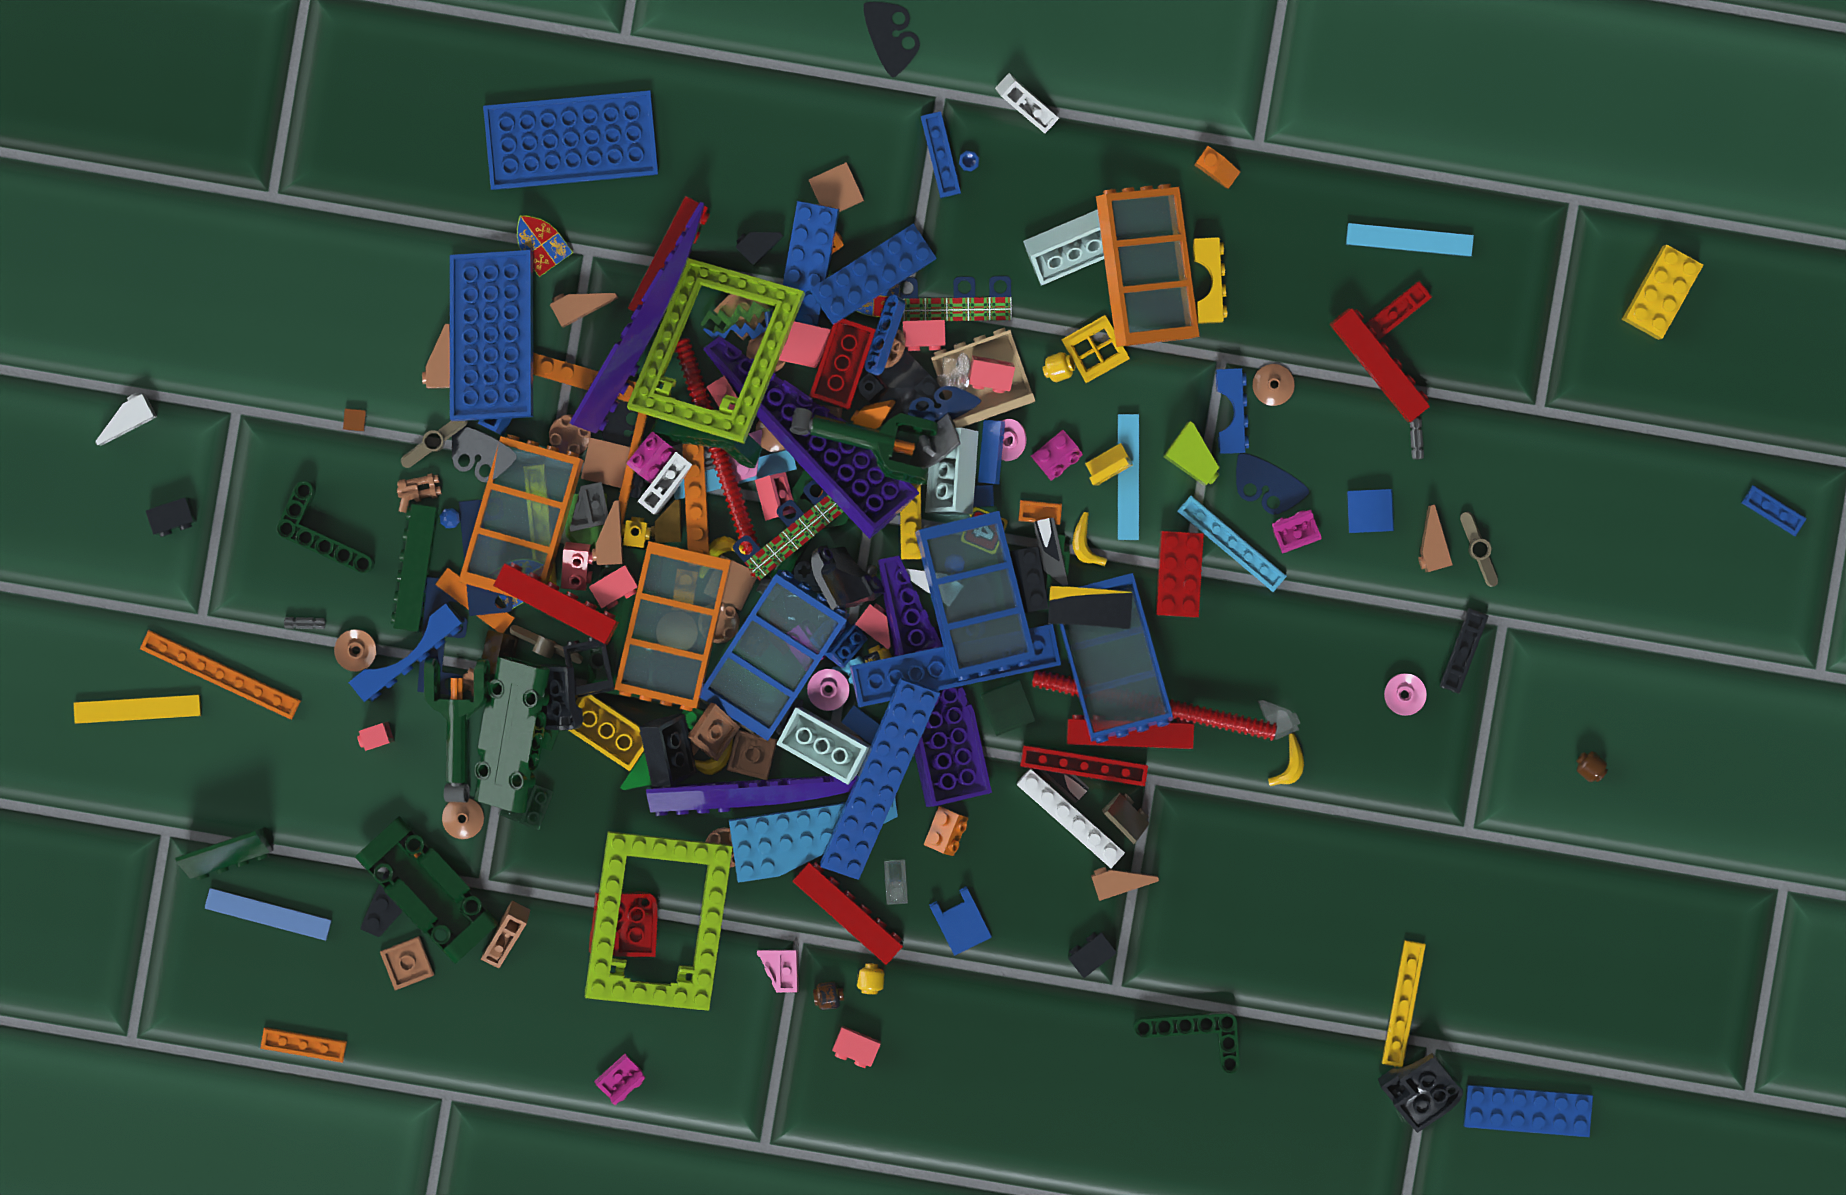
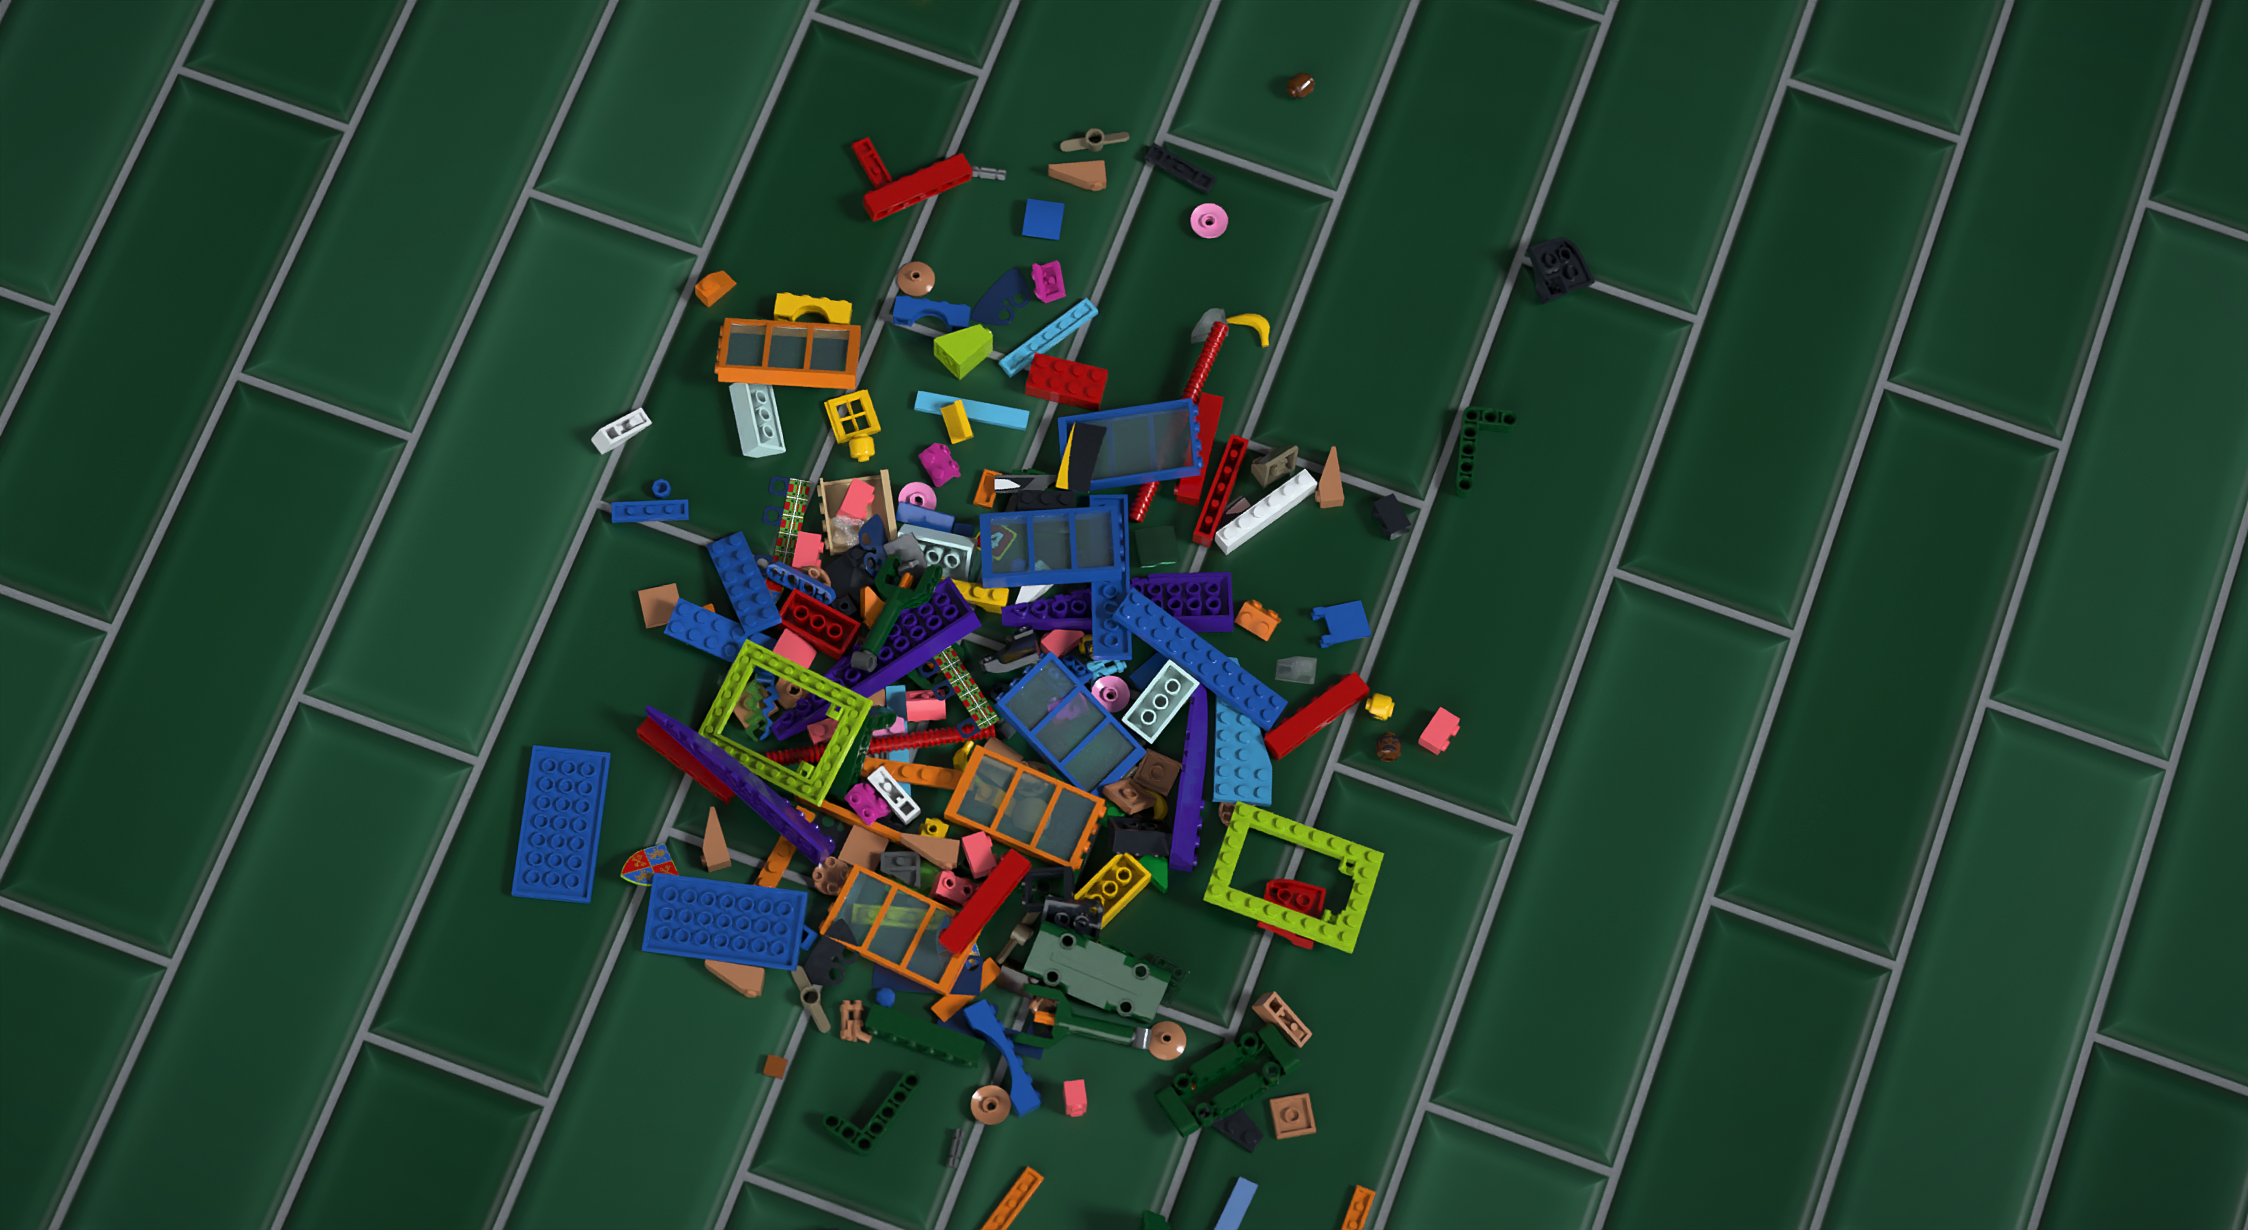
camera: 85 degrees left, 20 degrees down
(620, 1079) = (1434, 942): dark pink bracket -> none
(668, 525) = (931, 802): pearl gold slope -> none
(757, 245) = (694, 680): black slope -> none
(781, 968) = (1357, 783): bright pink wing -> none
(888, 48) = (525, 542): black piece -> none
(1080, 544) = (1023, 460): yellow piece -> none
(1403, 1003) = (1479, 273): yellow tile -> none
(1409, 239) = (814, 147): medium azure tile -> none
(1528, 1110) = (1590, 192): blue plate -> none

